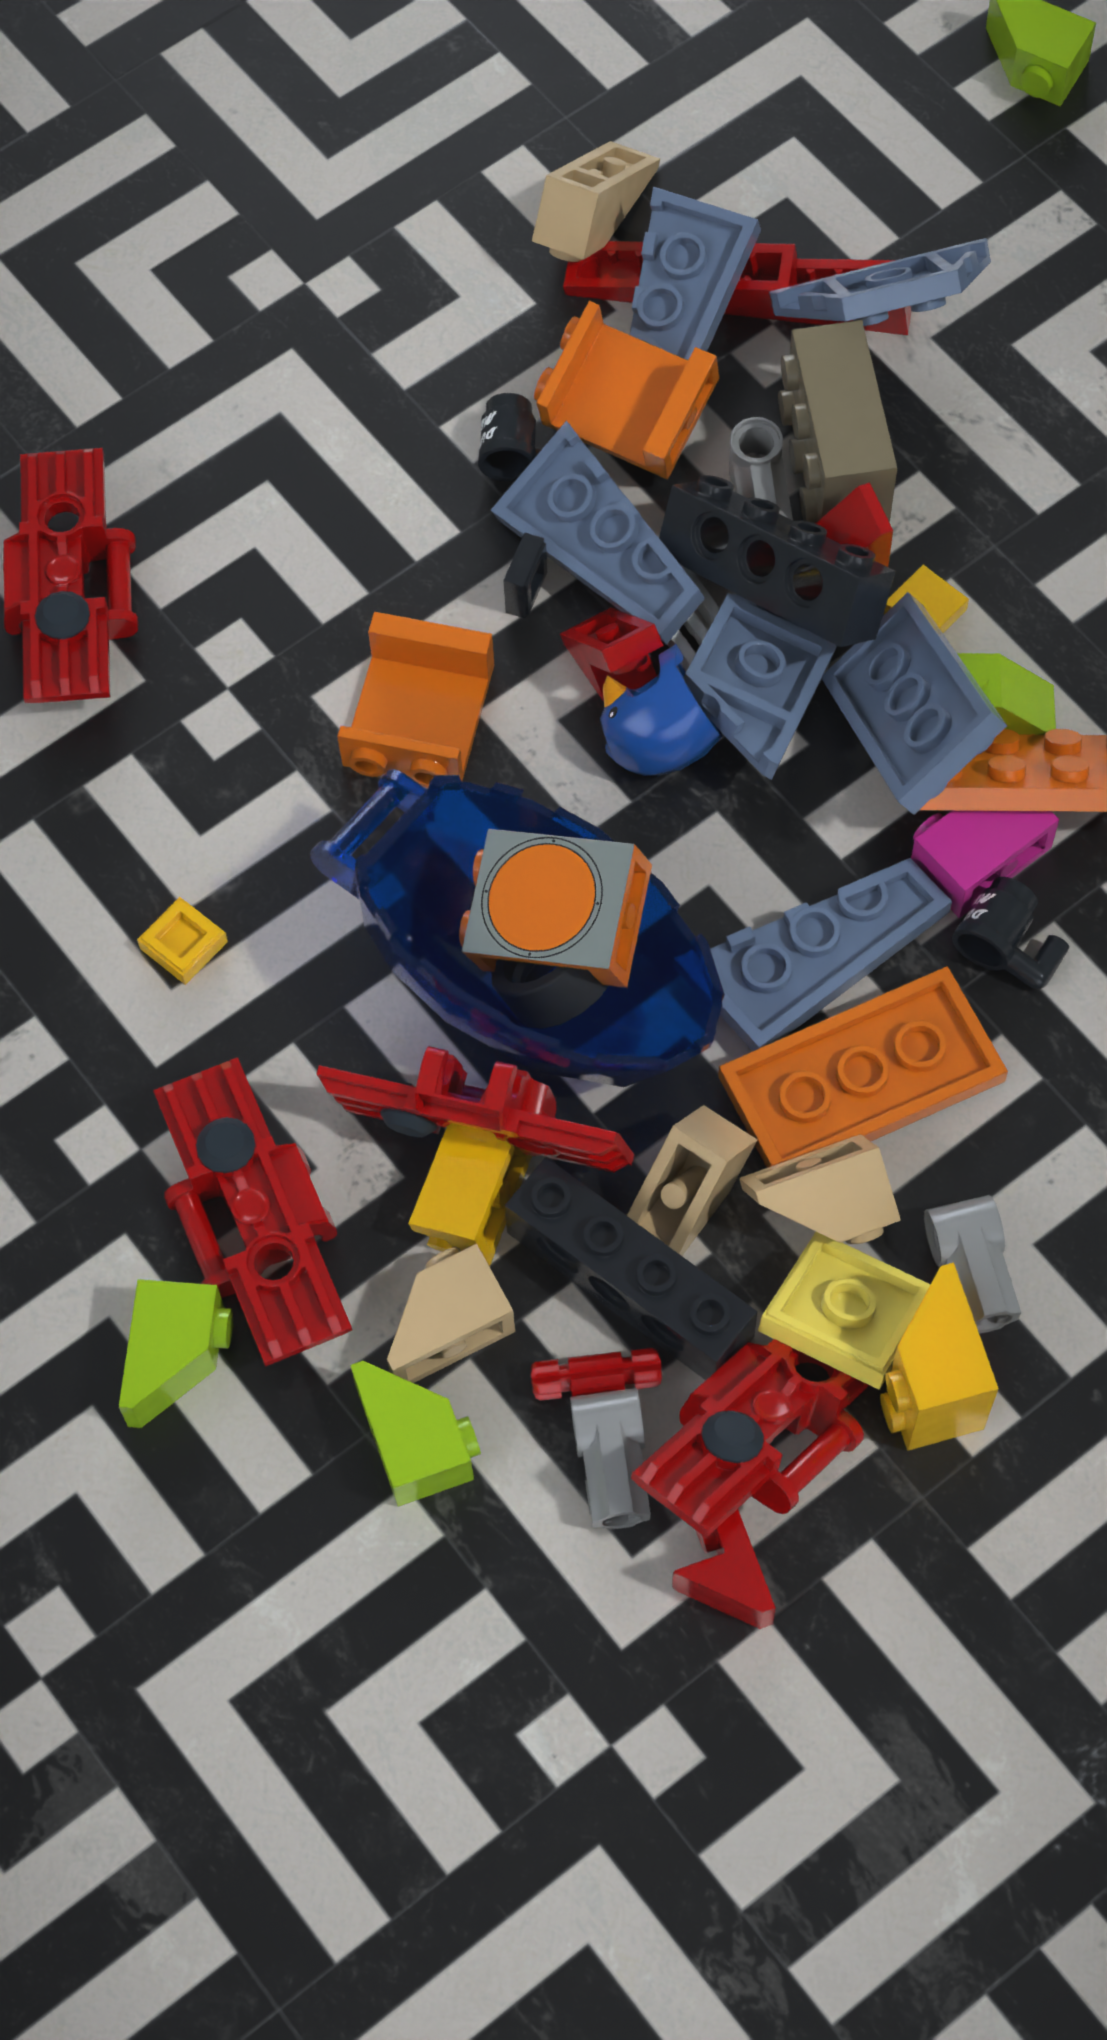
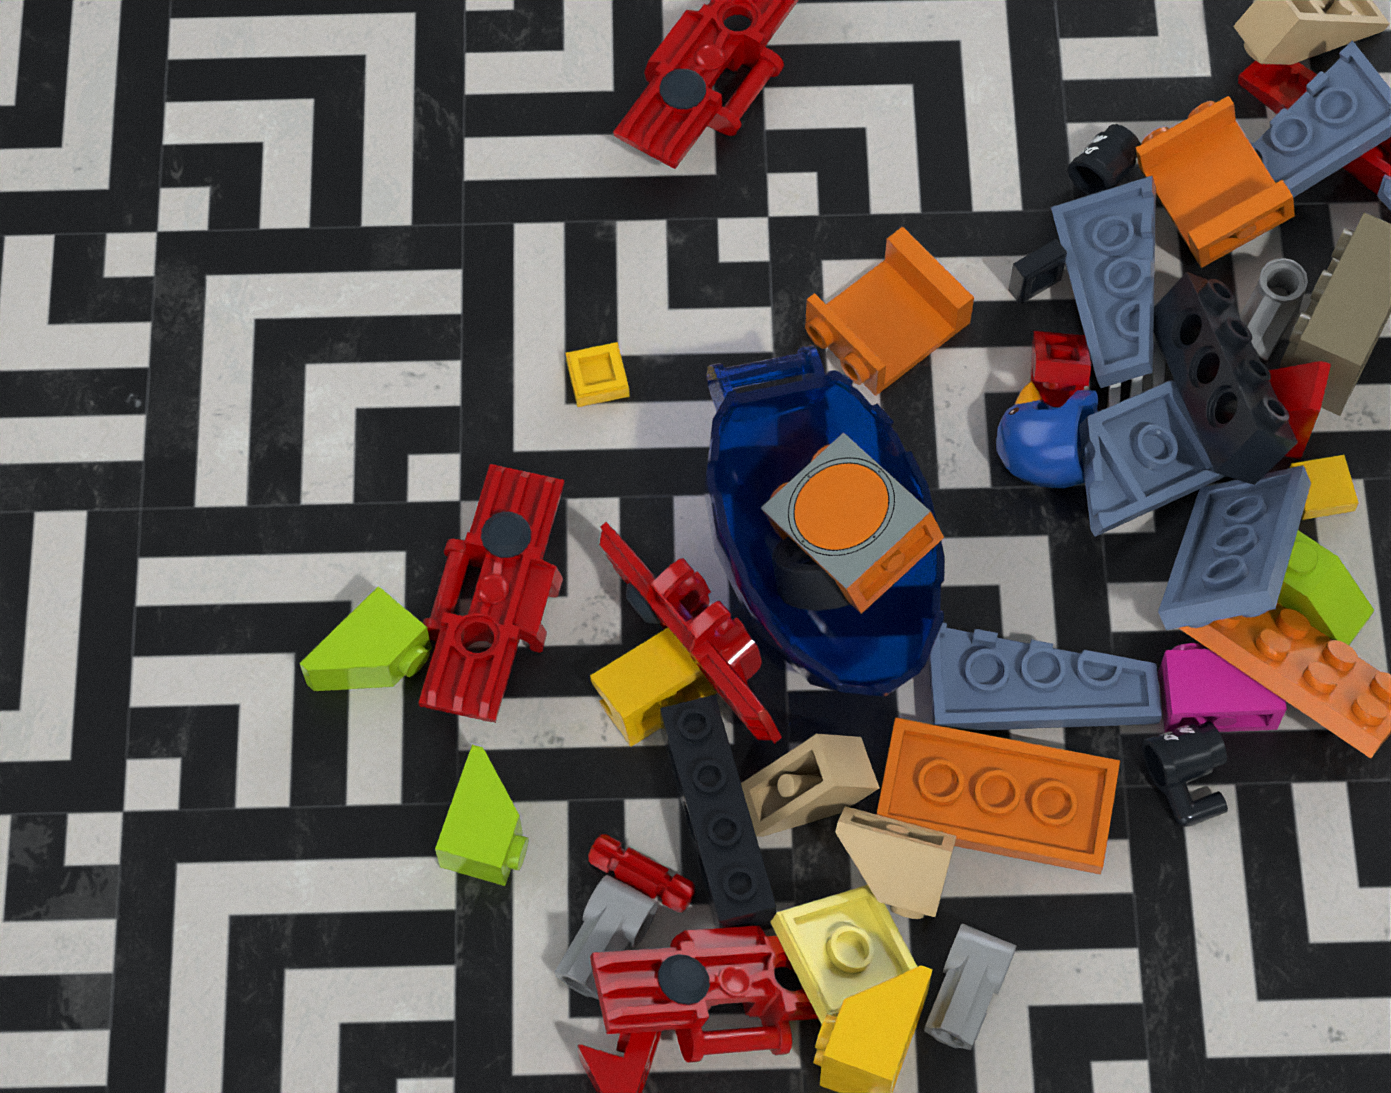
camera: 35 degrees right, 0 degrees up
(449, 1314) = (568, 759): tan slope -> none

